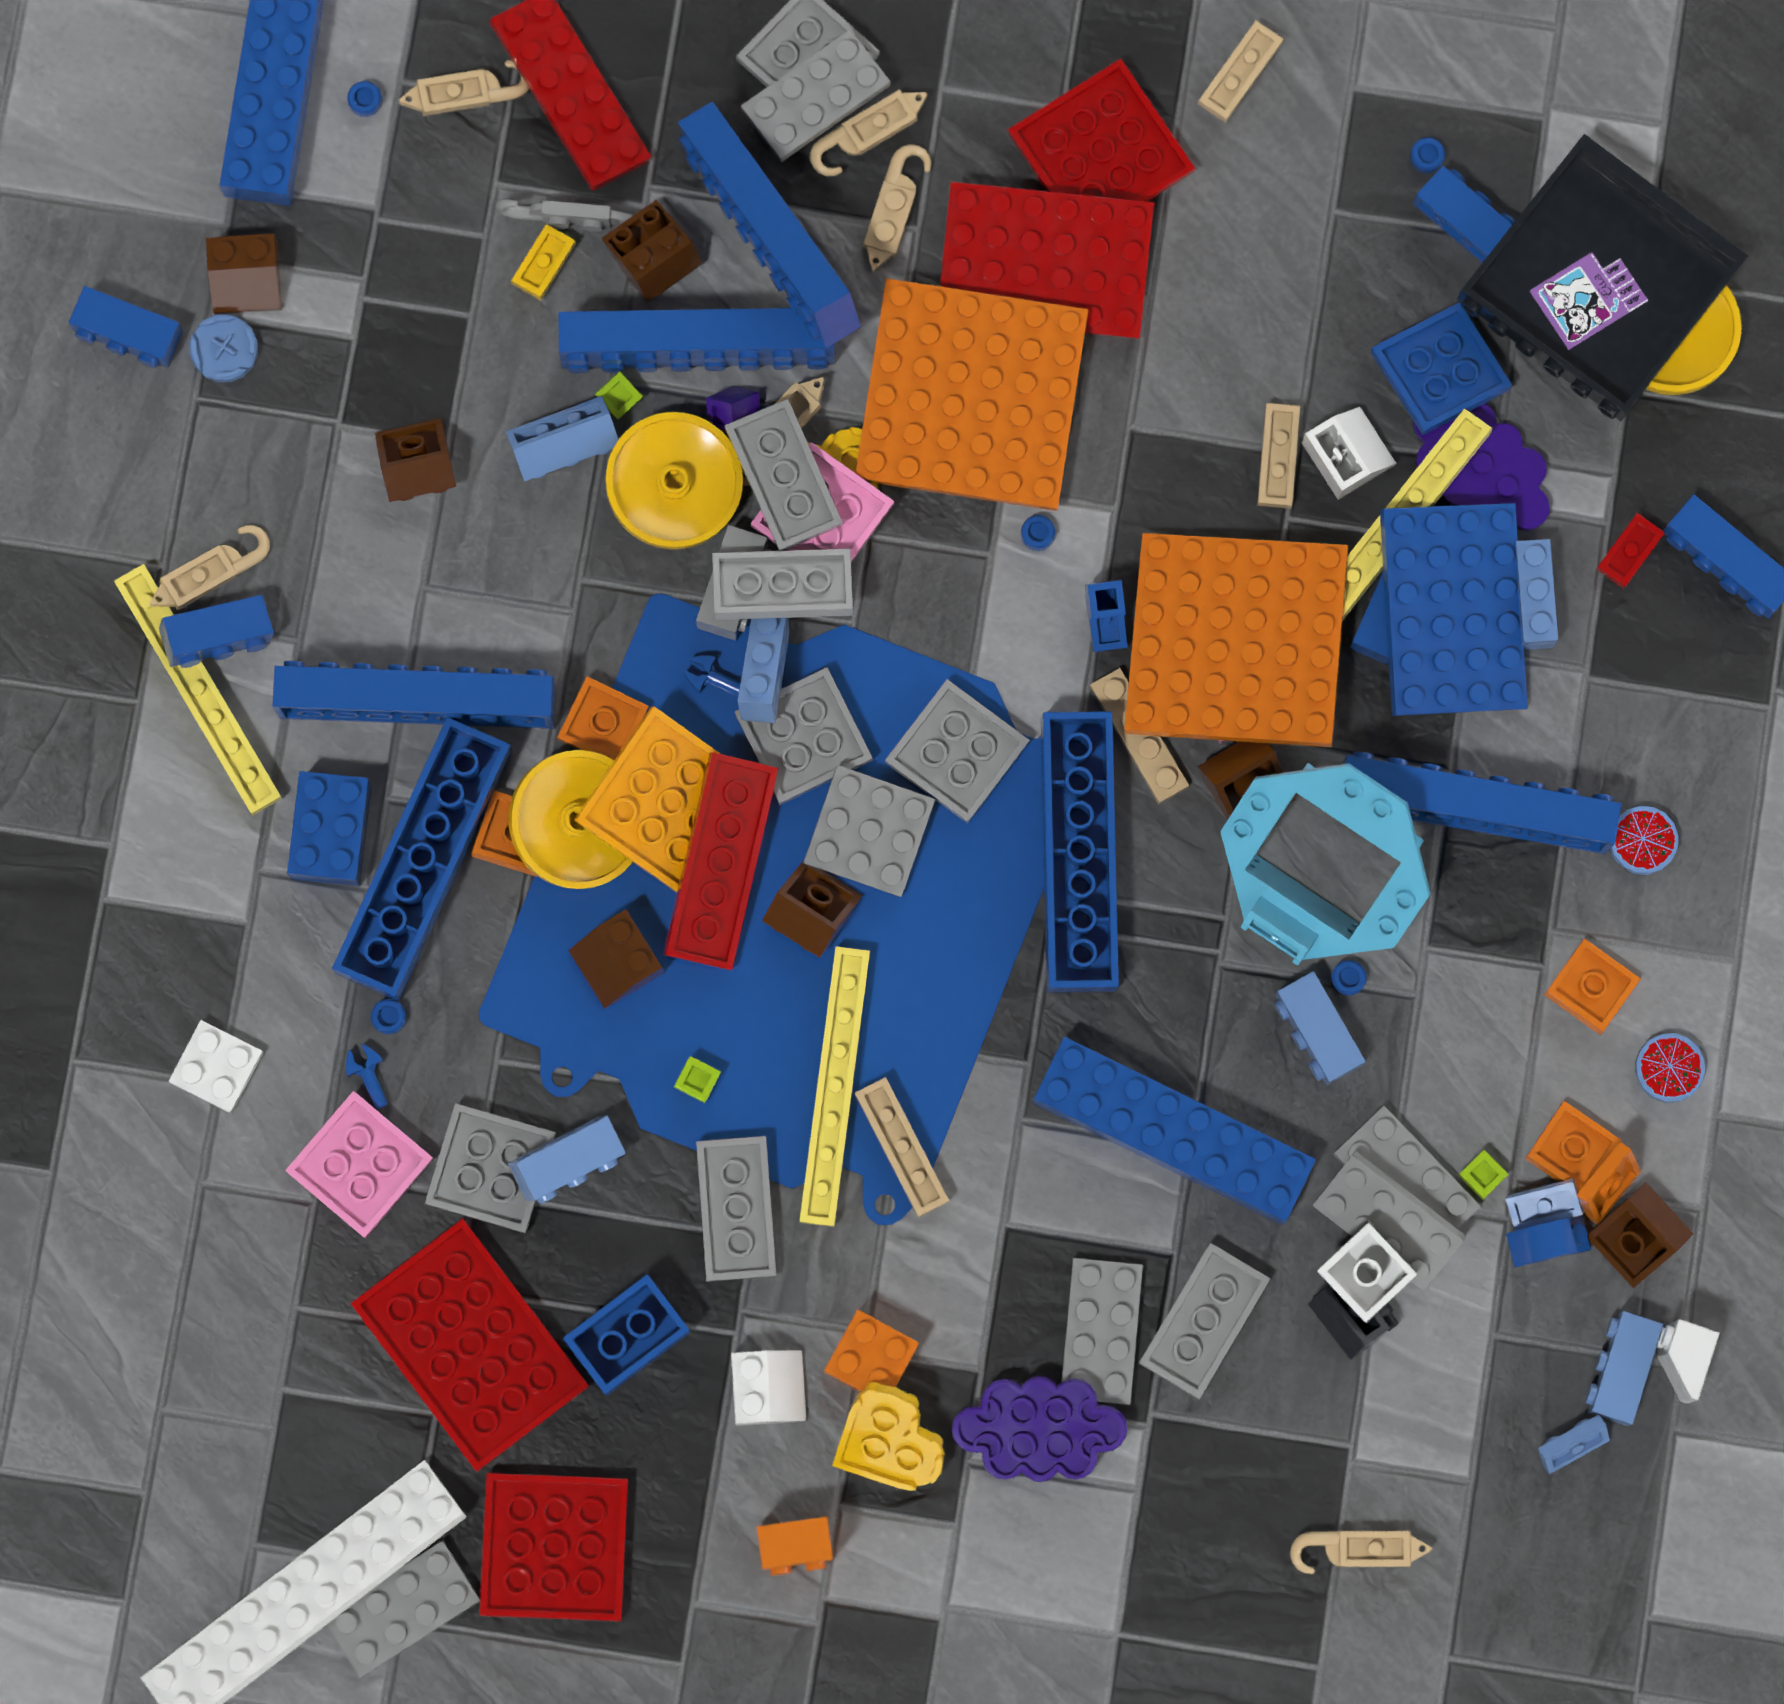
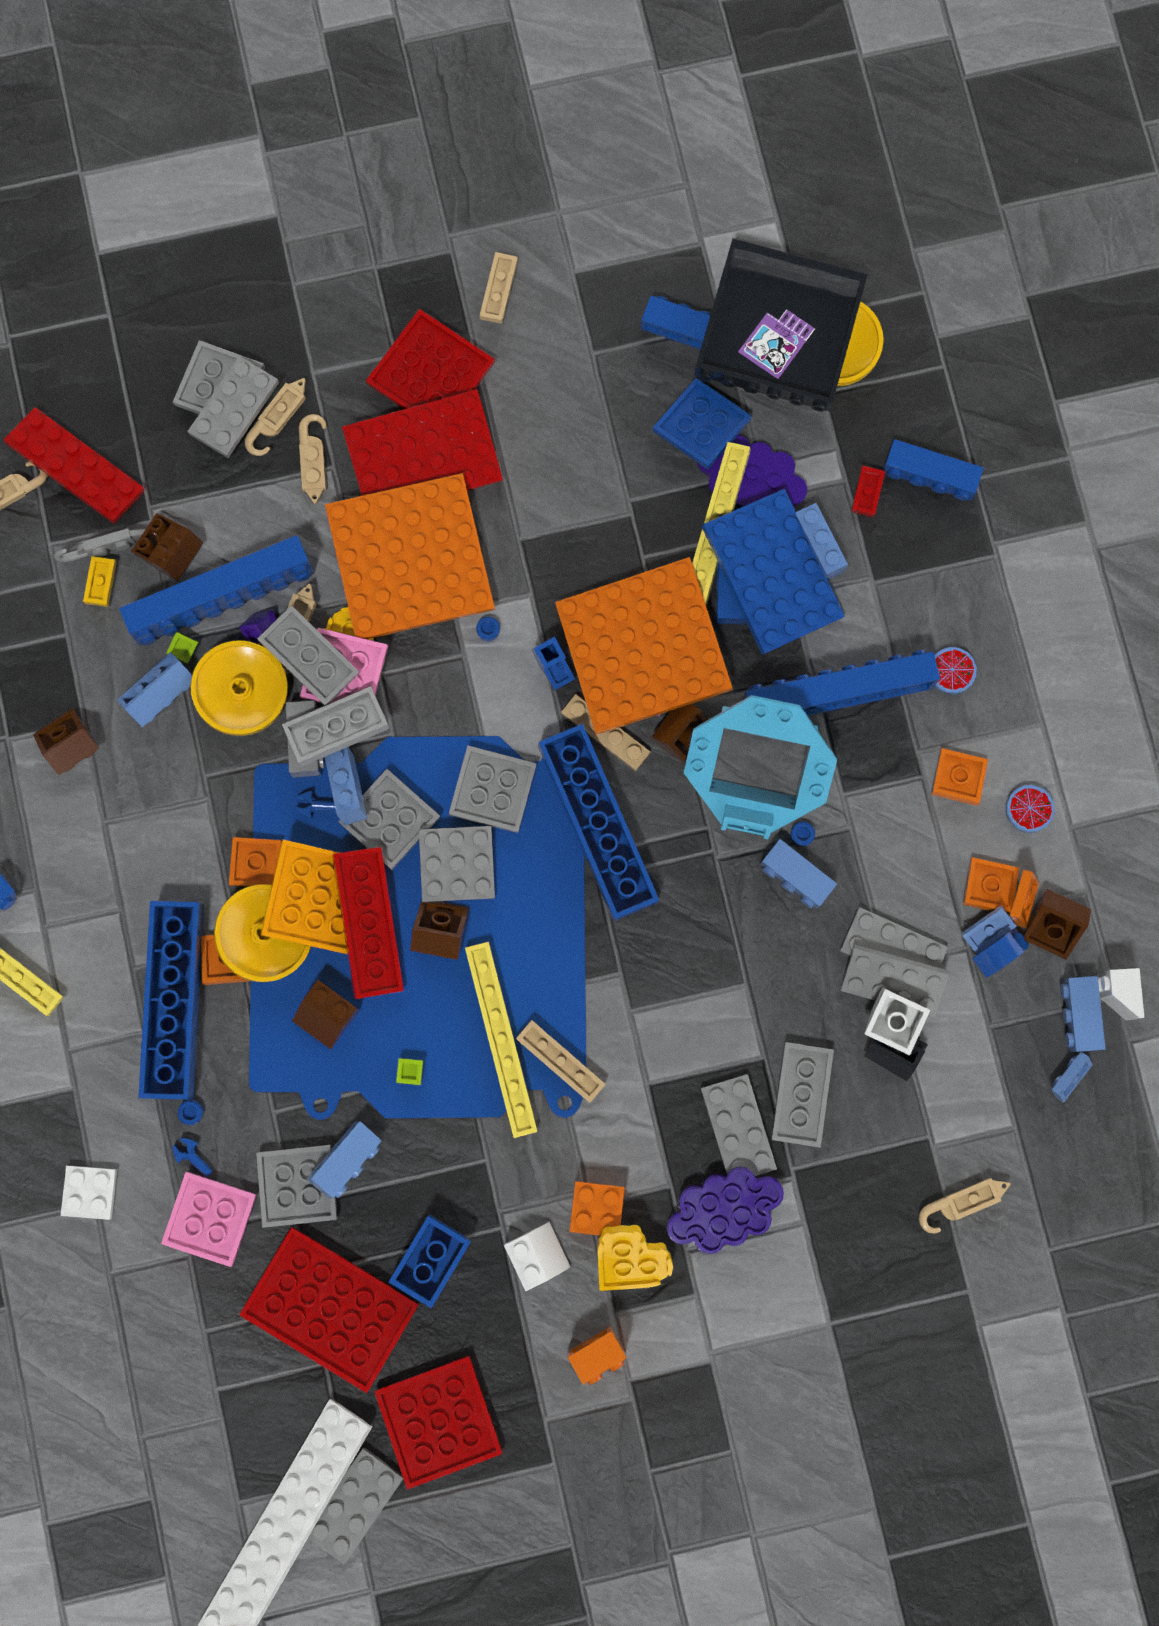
camera: 20 degrees left, 0 degrees up
(329, 828) = (102, 1004): blue brick -> none
(414, 696) = (123, 895): blue brick -> none
(736, 1208) = (469, 1146): light grey plate -> none
(768, 225) = (234, 498): blue brick -> none
(1174, 1131) = (732, 979): blue brick -> none
(1278, 455) = (621, 519): tan plate -> none
(1347, 451) = (664, 499): white slope -> none
(1427, 155) = (637, 295): blue tile -> none
(1483, 1174) = (941, 925): lime plate -> none

